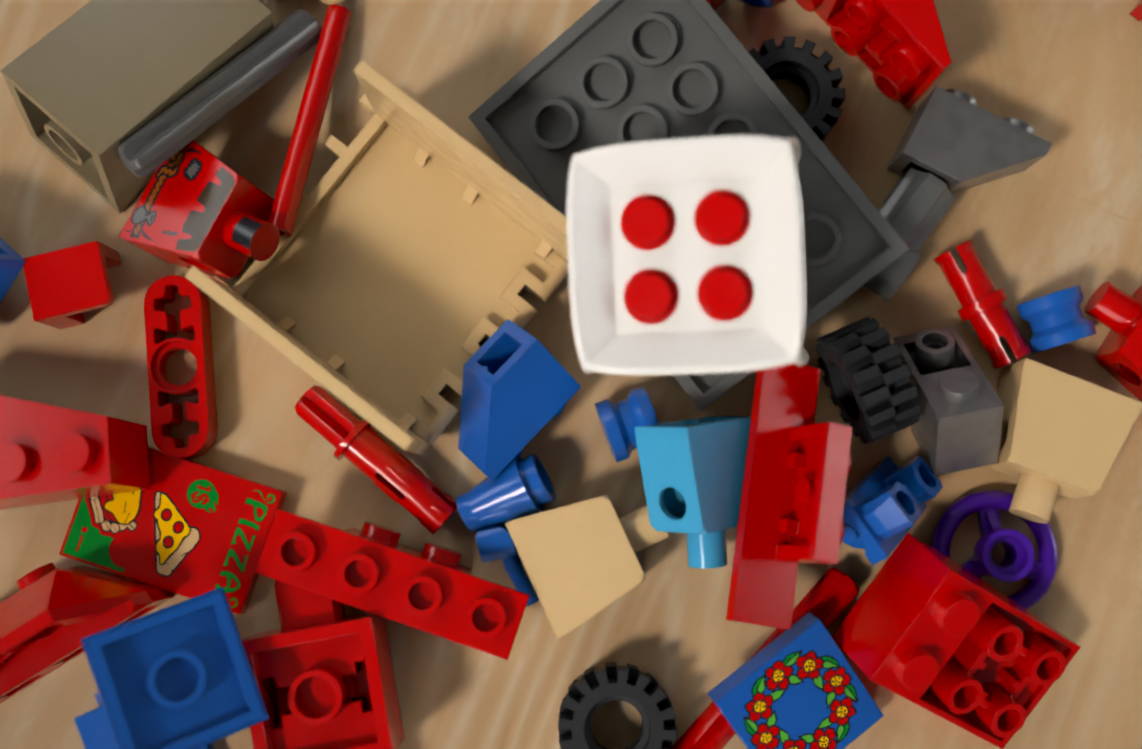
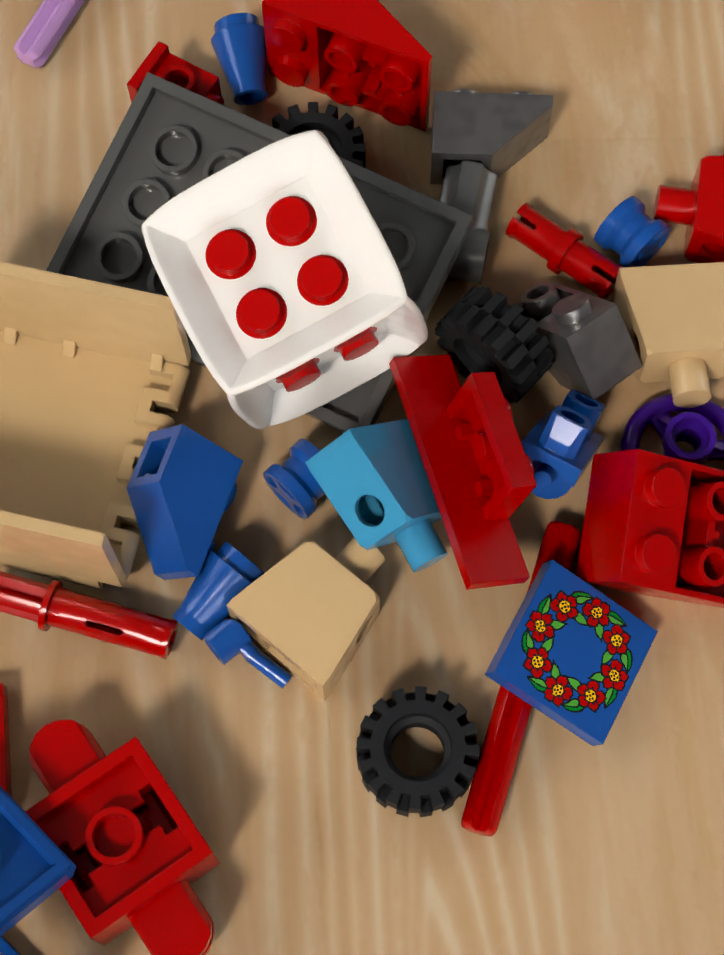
camera: 25 degrees left, 15 degrees down
(393, 580) = (143, 702): red bracket -> none

